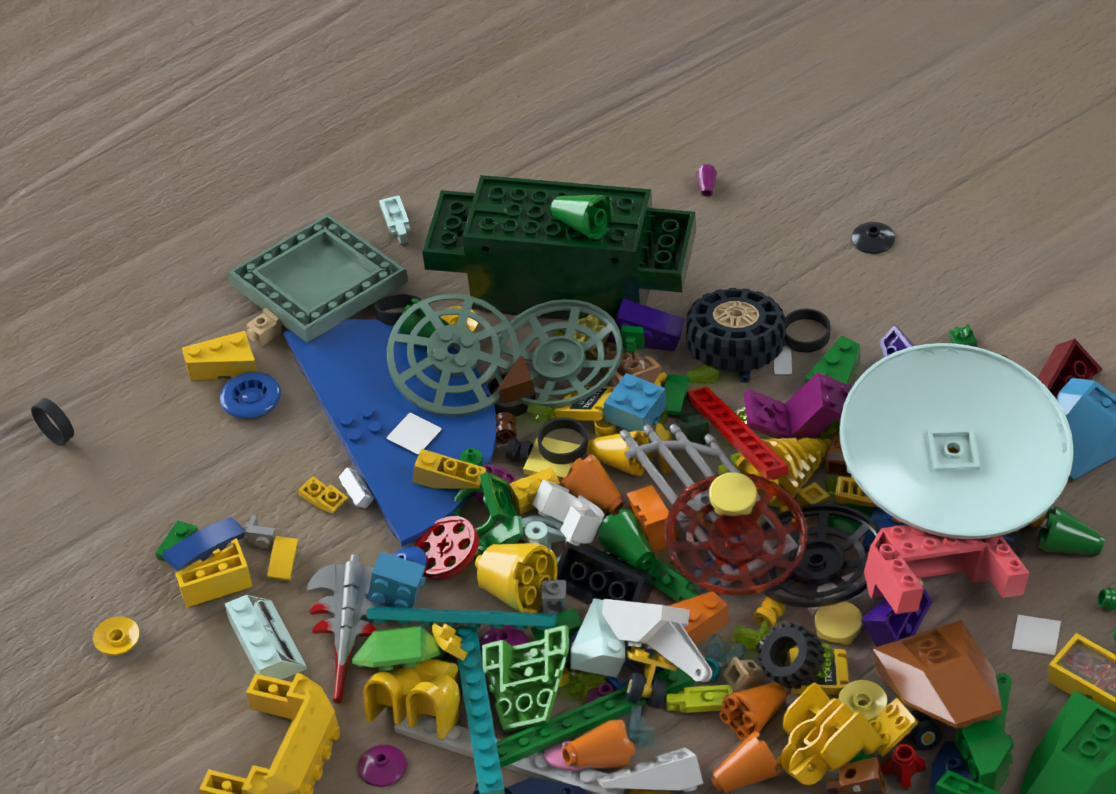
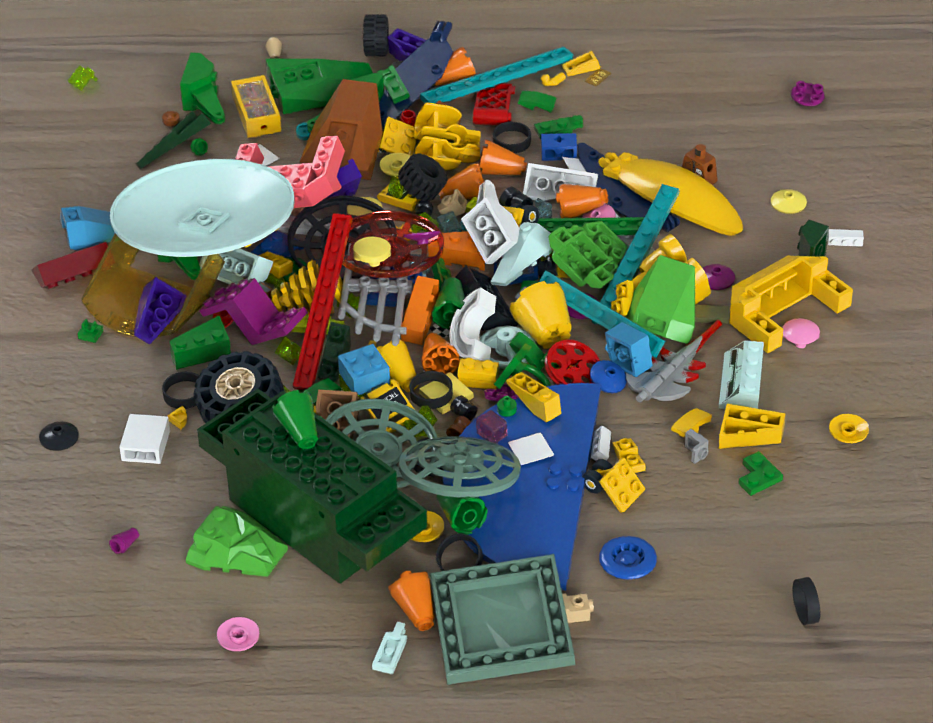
camera: 150 degrees left, 5 degrees down
(203, 543) = (749, 444): blue slope -> none
(219, 357) = (630, 595): yellow wedge -> none
(239, 737) = (800, 332): none -> bright pink dish
(305, 444) = (617, 481): none -> yellow plate
(349, 707) = (711, 313): none -> olive tile
(406, 253) = (414, 597): none -> orange cone
(464, 422) = (491, 427): none -> clear pink brick
(516, 383) = (430, 427): reddish brown slope -> none
(531, 161) = (238, 634): none -> bright pink dish
(680, 721) = (512, 196): none -> black wheel
(708, 541) = (422, 238): none -> magenta dish
(785, 304) = (178, 417): none -> yellow tile
(786, 265) = (144, 438): none -> white brick
(1019, 691) = (301, 131): none -> teal tile

